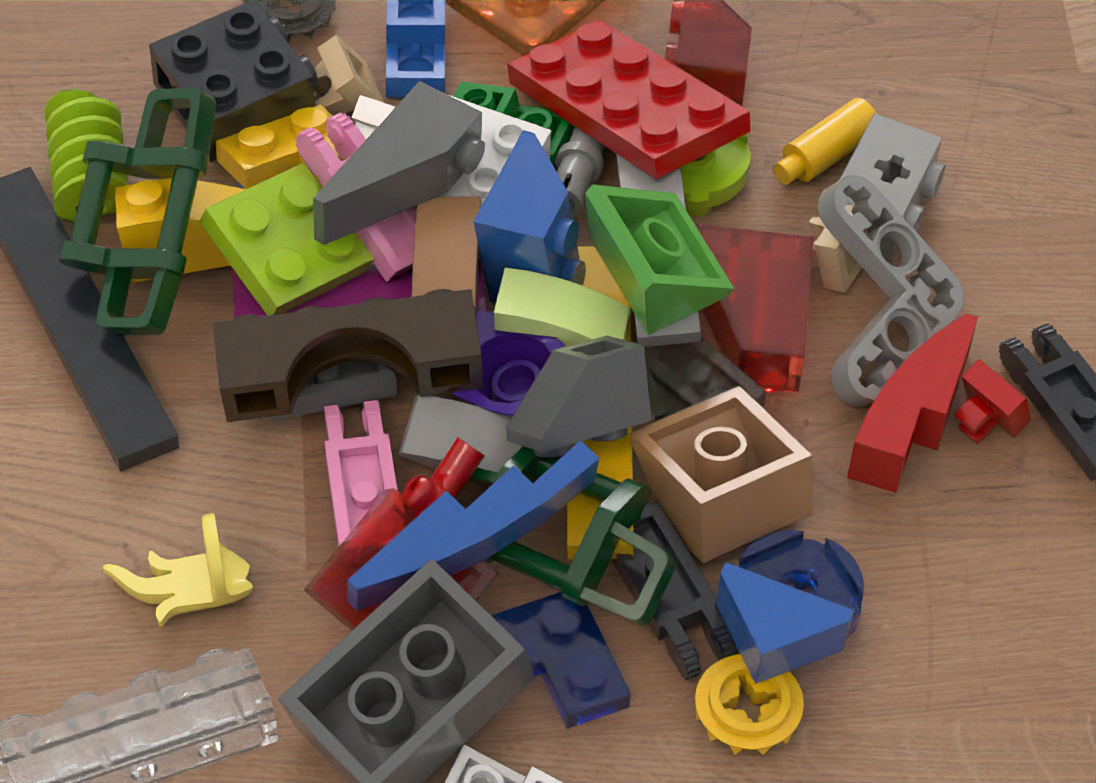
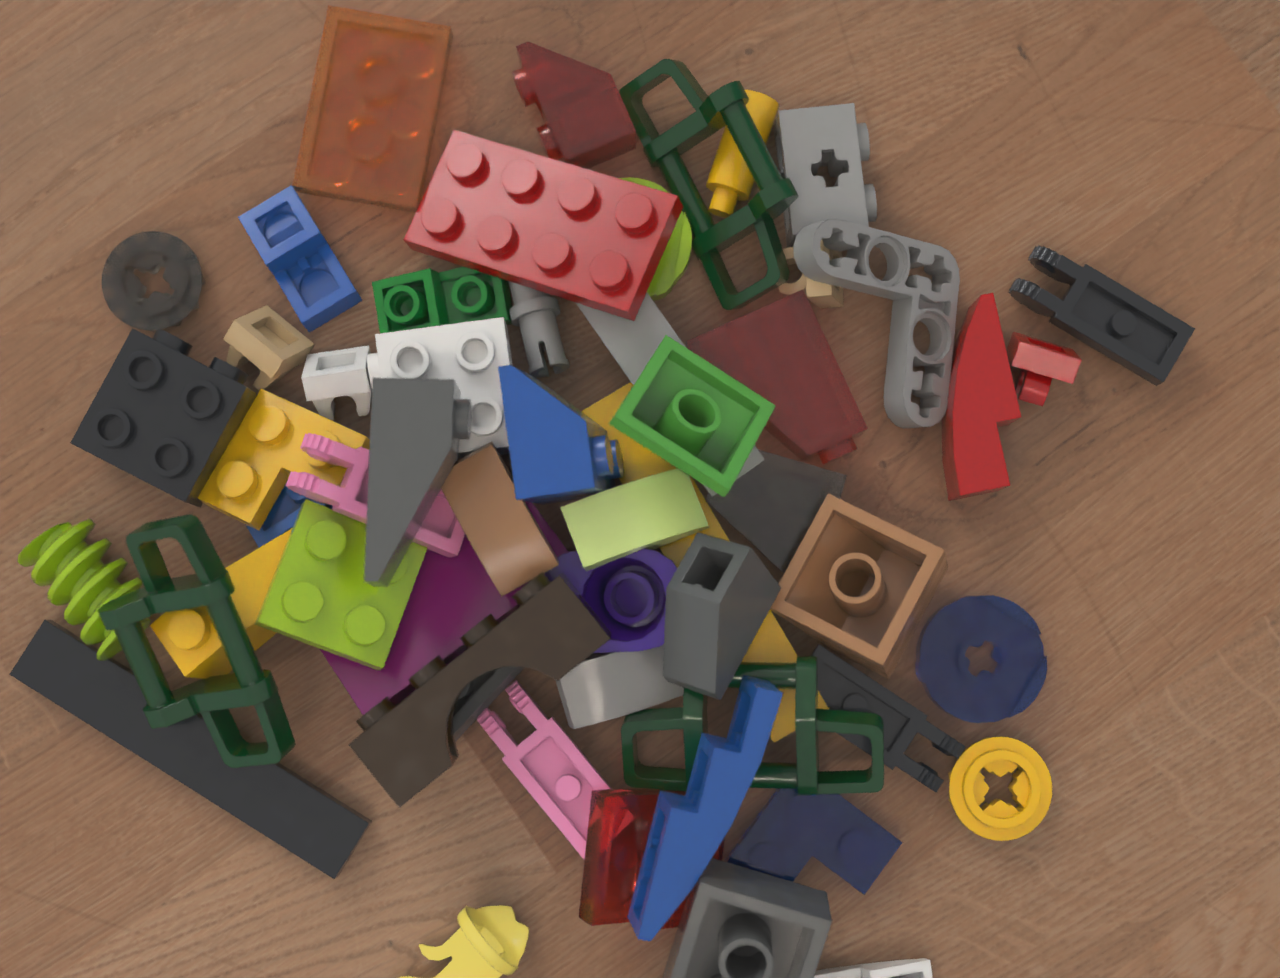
camera: 30 degrees left, 30 degrees up
(449, 476) = (641, 768): red arm -> none
(778, 624) = (1004, 730): blue slope -> none
(804, 180) = (713, 112): none -> dark green bar

